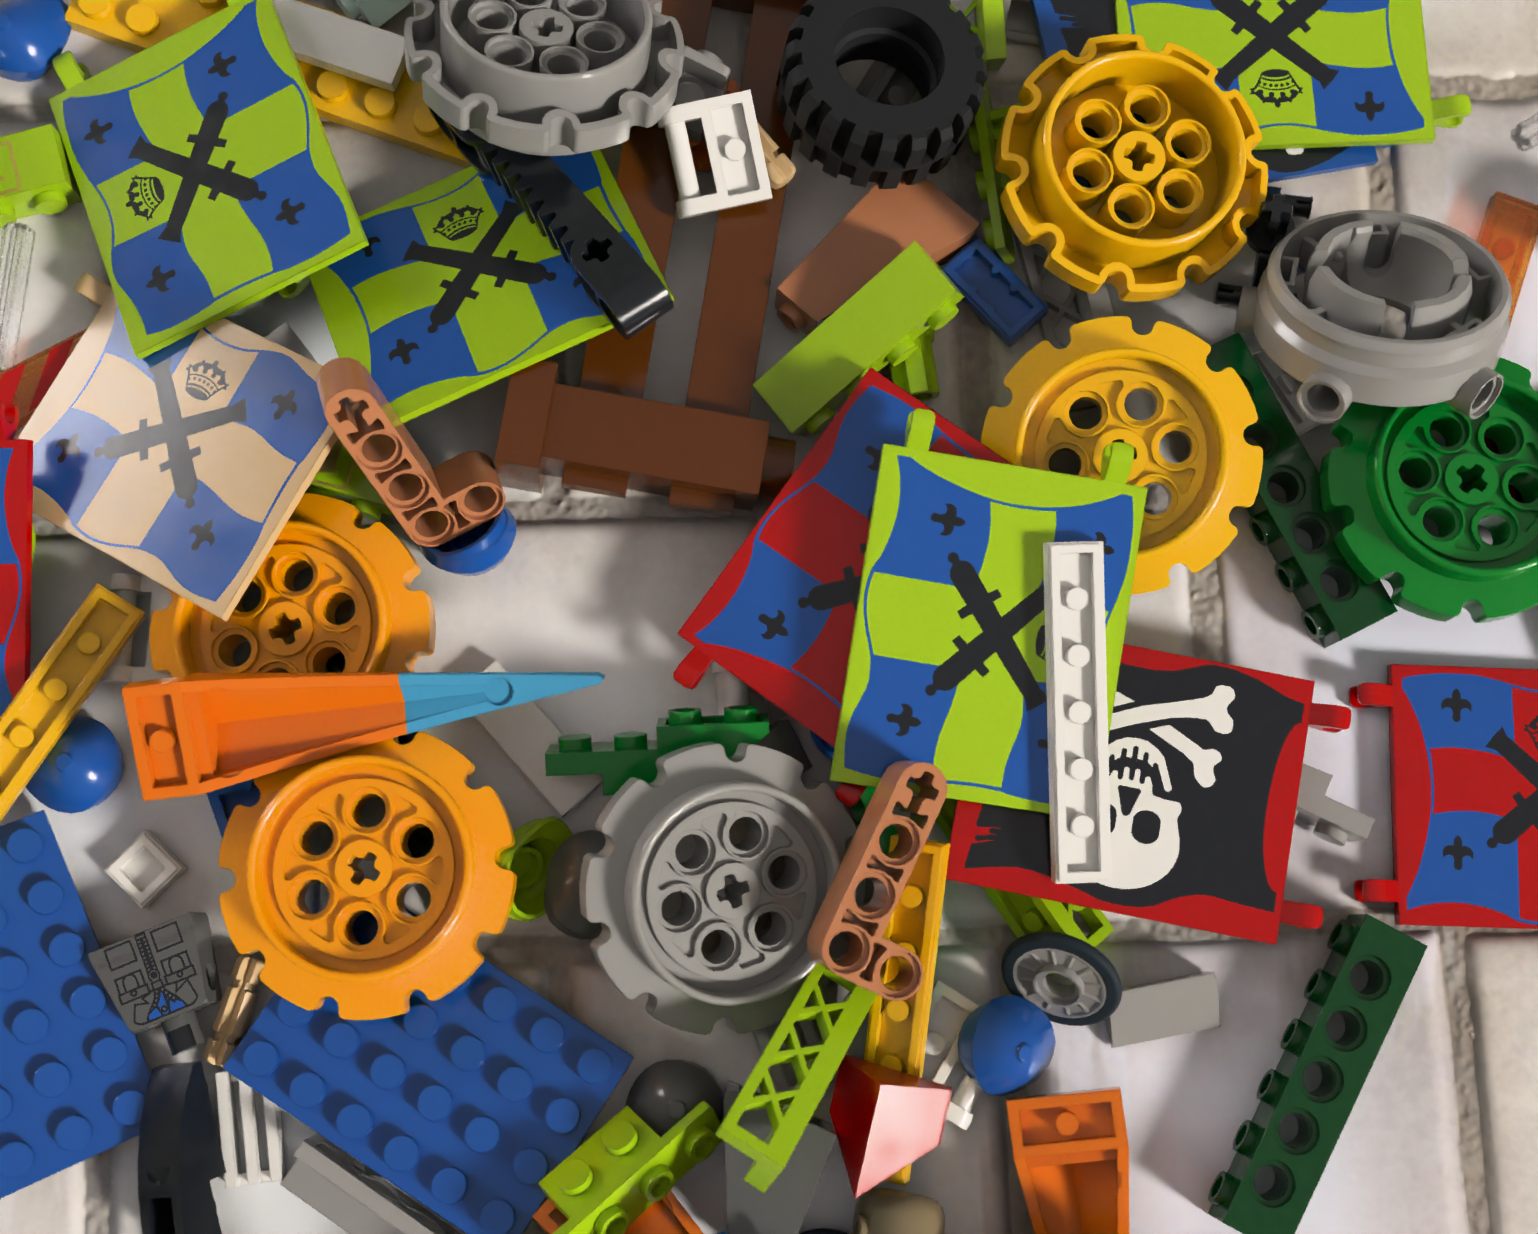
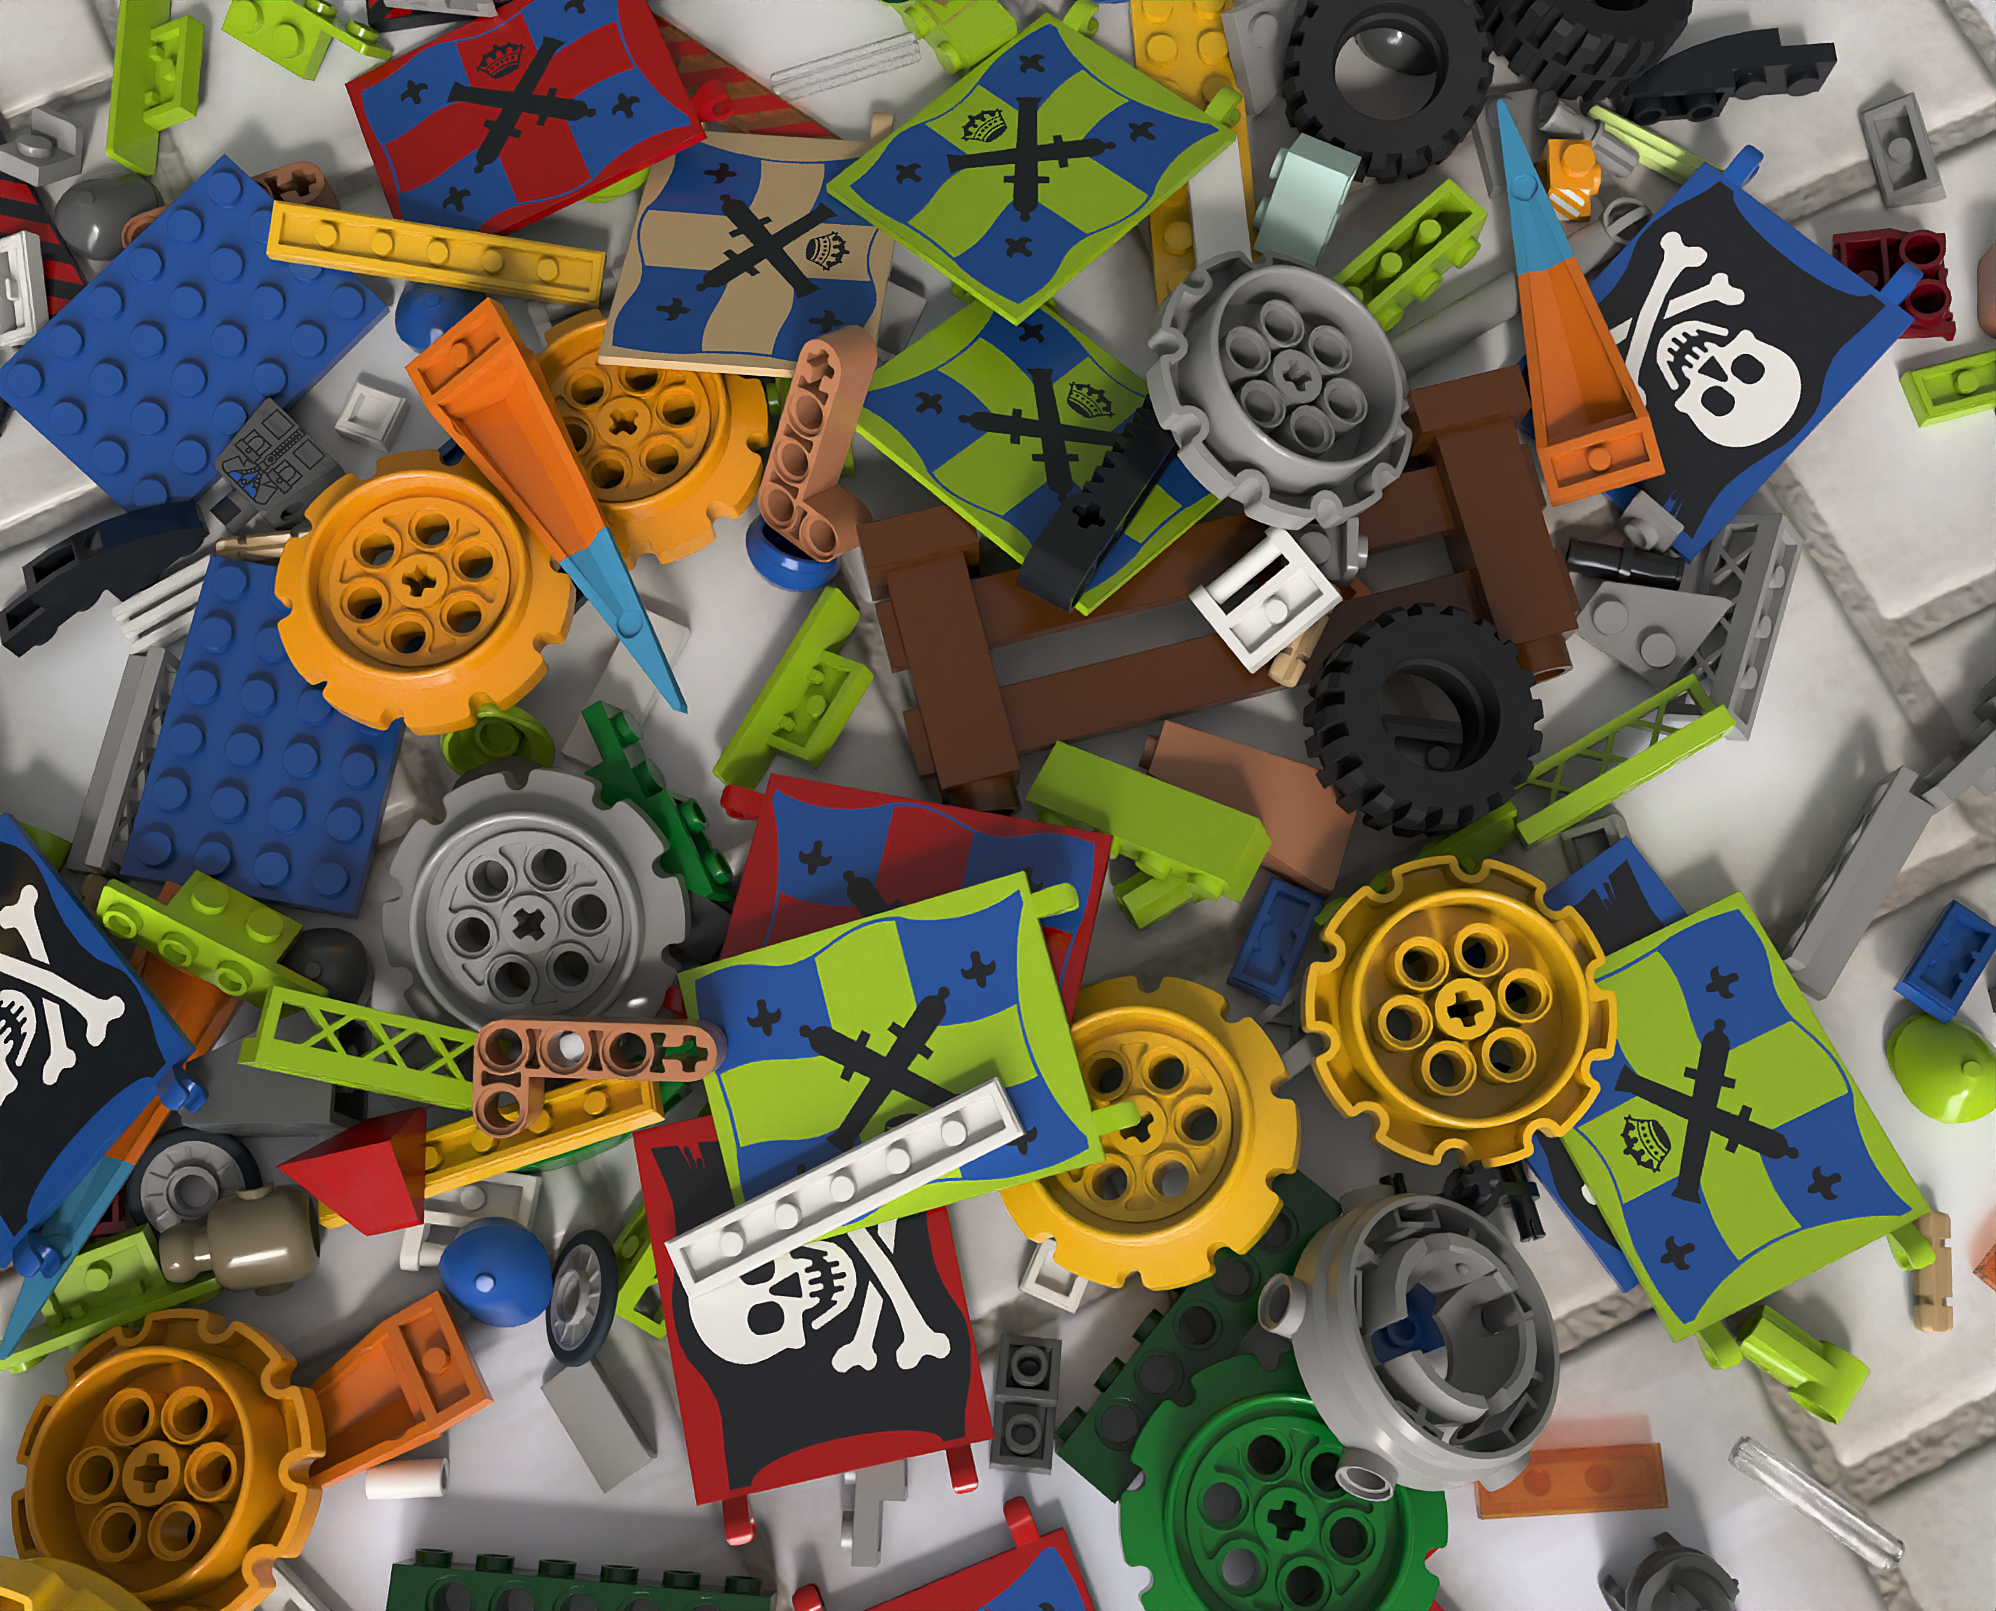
camera: 75 degrees right, 5 degrees down
(615, 584) = (802, 700): none -> lime bracket
(1147, 1188) = (408, 1479): none -> white piece
(1190, 590) = (1051, 1281): none -> white tile
(1273, 646) = (1025, 1404): none -> dark grey slope
(1487, 56) = (1816, 1372): none -> lime piece

